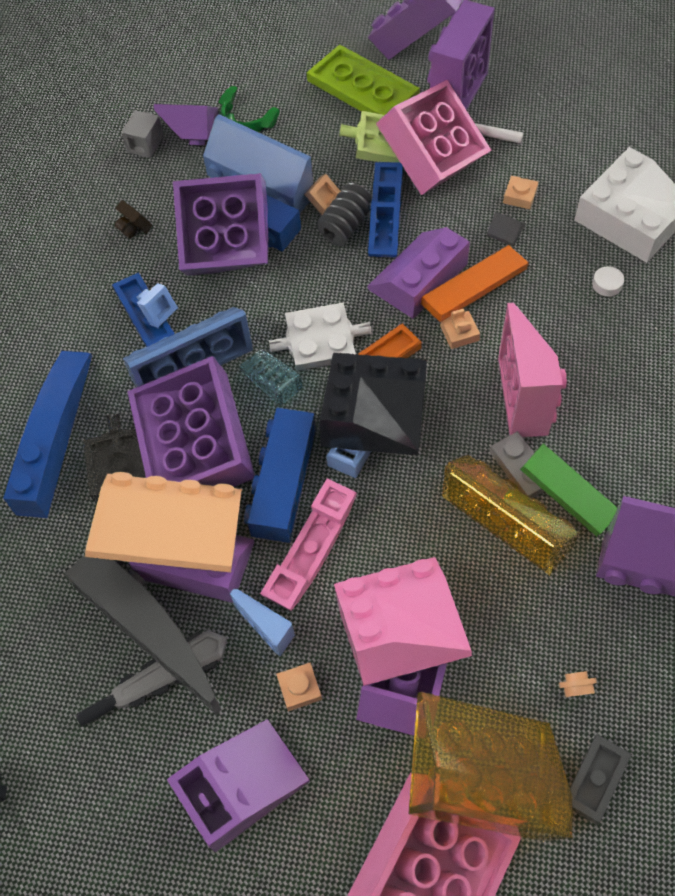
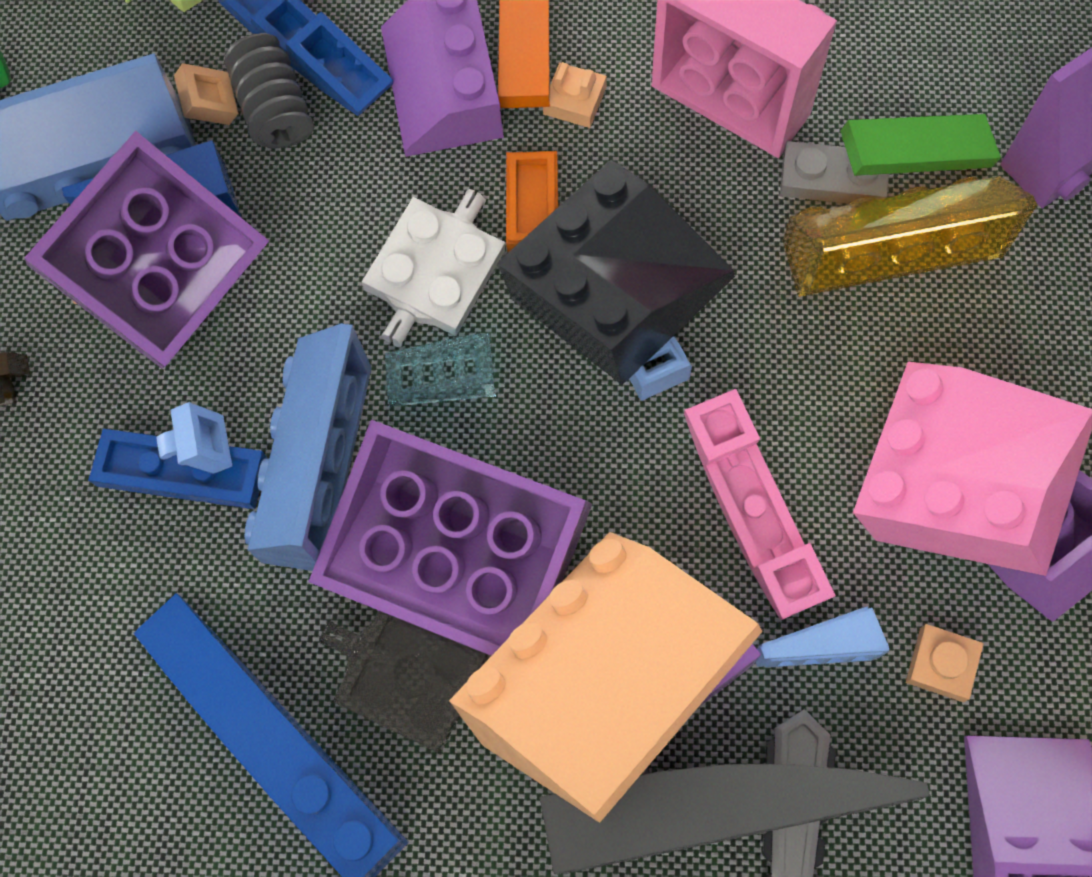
camera: 50 degrees left, 10 degrees up
(281, 475) = (617, 463): blue brick -> none

